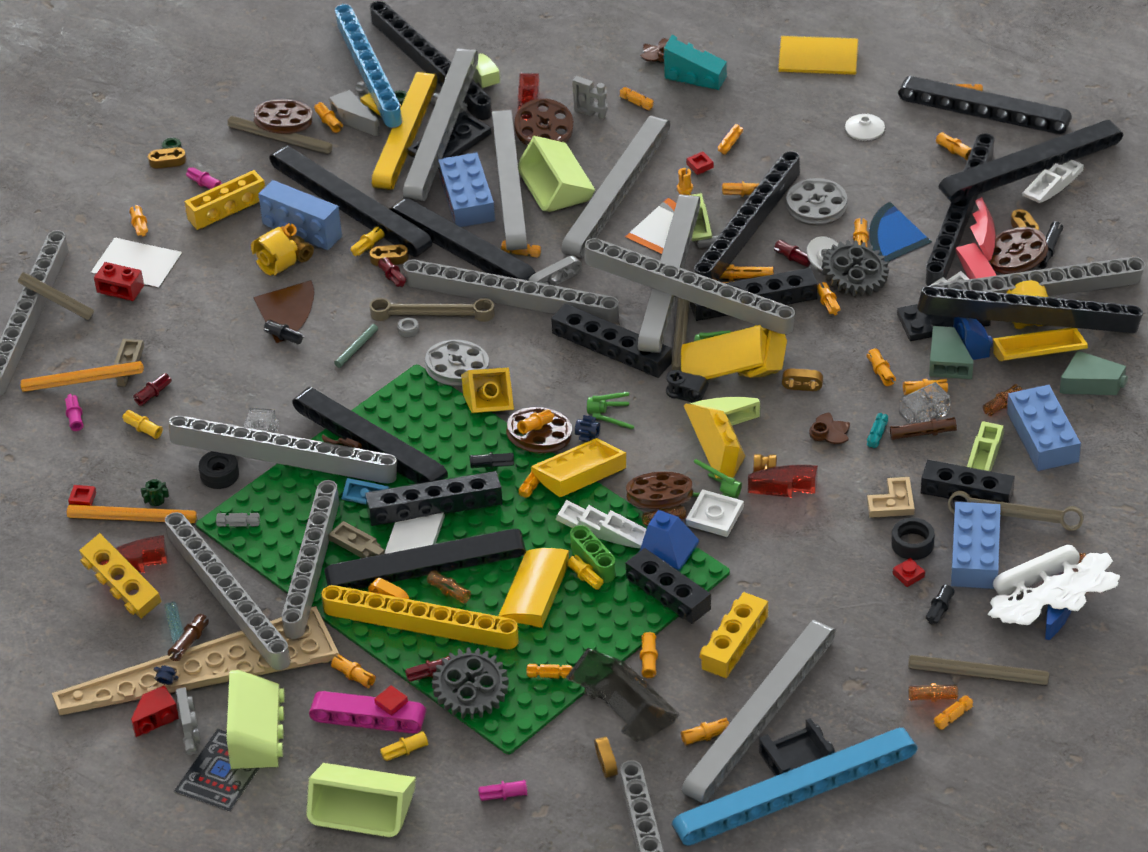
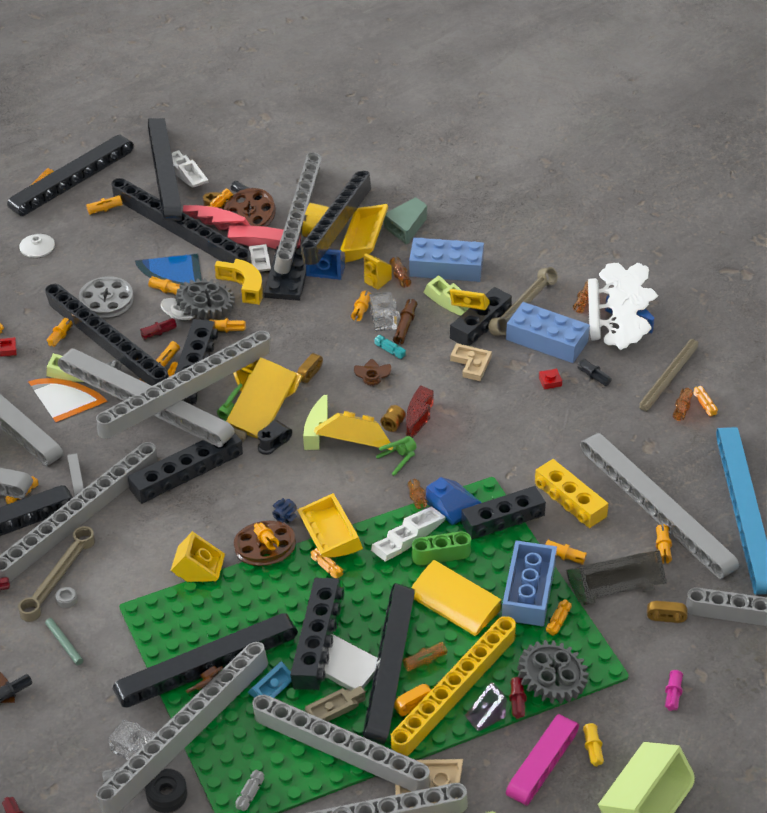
camera: 70 degrees left, 0 degrees up
(353, 671) = (485, 757): light orange pin -> none
(391, 700) = (550, 731): red tile -> none
(403, 650) = (488, 708): none -> slope
(454, 361) = (141, 574): light grey wedge -> none
(492, 460) = (287, 582): black axle -> none
(572, 628) = (529, 583): none -> medium blue brick
(585, 572) = (458, 560): yellow axle -> none
(597, 405) = (259, 496): bright green plant -> none
(659, 490) = (387, 487): reddish brown wedge -> none
(684, 186) = (39, 359): light orange pin -> none
(714, 513) = (428, 464): white plate -> none
(795, 749) = (710, 496): black panel -> none
(881, 367) = (322, 322): light orange pin -> none
(905, 291) = (246, 275): none -> yellow arch
(913, 526) = (520, 373): black tyre -> none
(949, 355) = (335, 282): sand green slope -> none
(972, 459) = (469, 299): none -> yellow slope
(982, 376) = (376, 271): none -> yellow slope
(1012, 222) = (221, 199): none -> light orange axle

